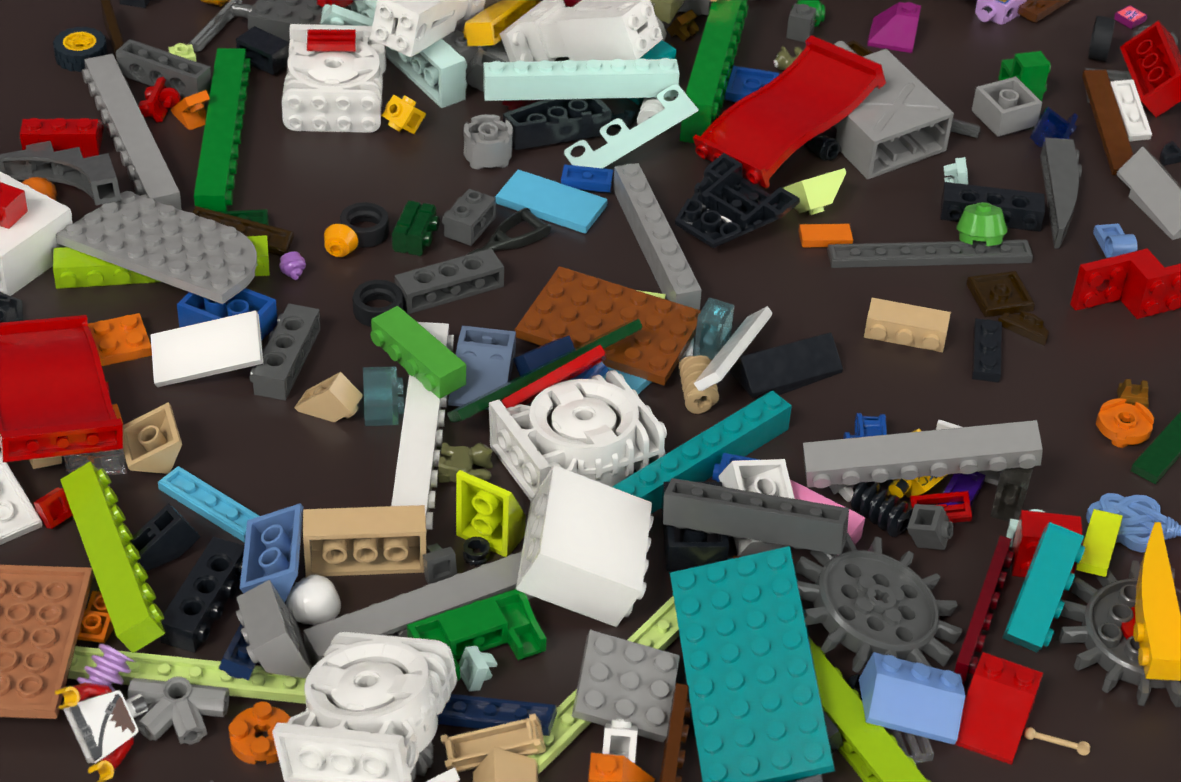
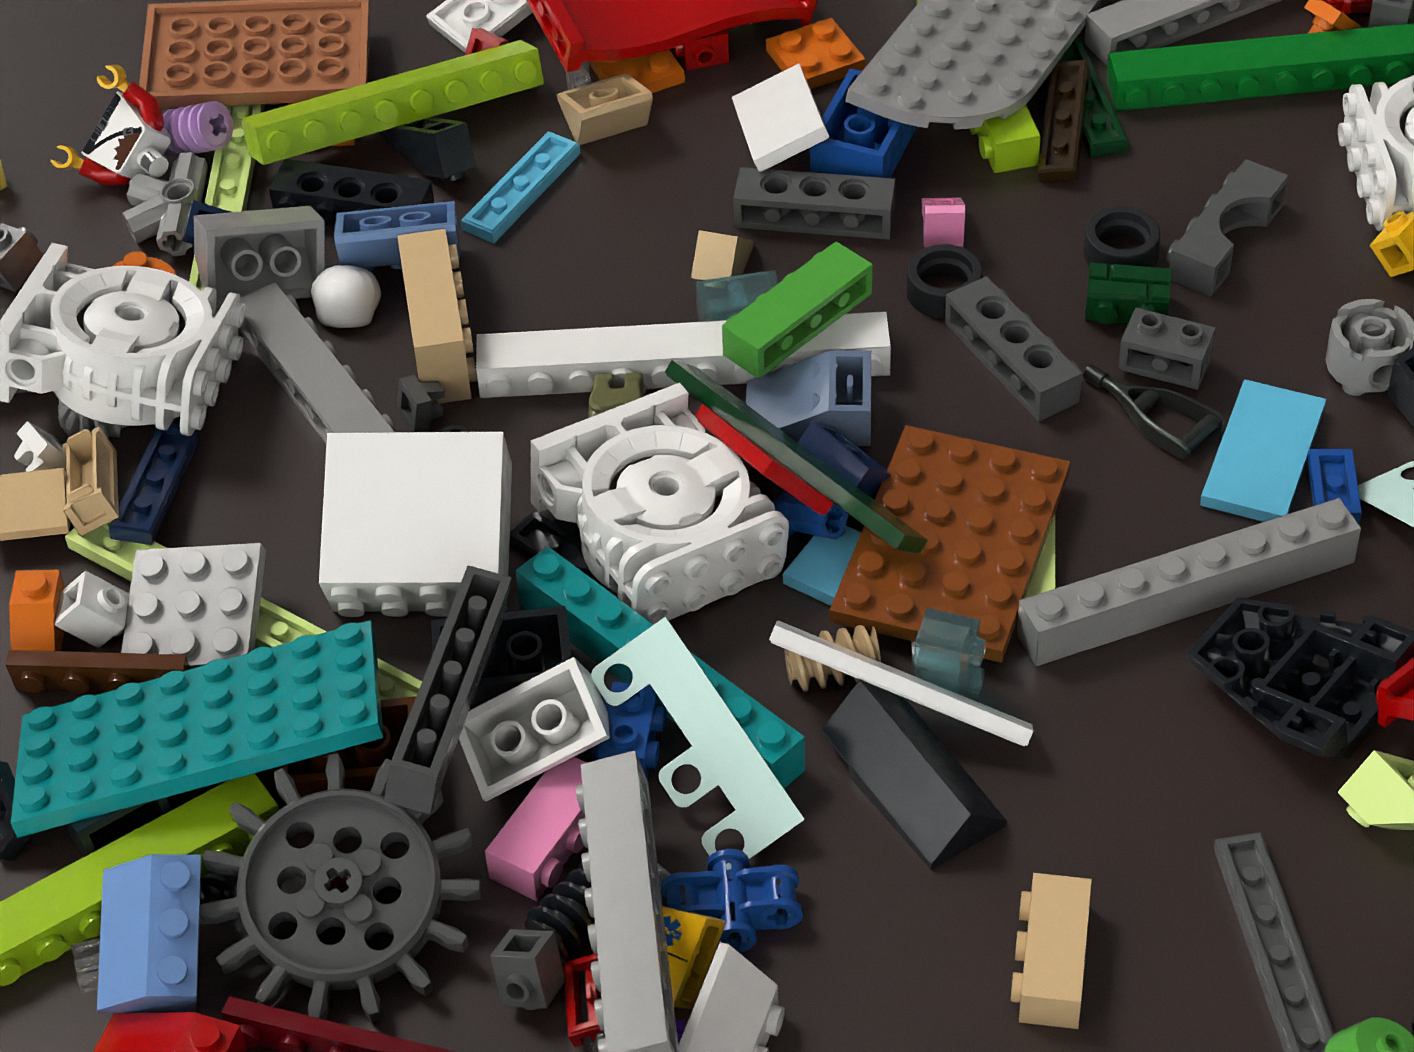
camera: 90 degrees right, 5 degrees up
(292, 264) = (1002, 182): medium lavender plate -> none
(322, 289) = (943, 221): none -> bright pink slope
(339, 168) = (1247, 199): none -> dark grey arch
(340, 240) = (1068, 219): light orange cone -> none
(475, 667) = (233, 460): light aqua tile -> none
(485, 625) = (290, 440): green bracket -> none
(488, 513) = (491, 401): neon yellow slope -> none
(778, 425) = (717, 740): none -> light aqua piece
(824, 234) = (1294, 832): orange tile -> none

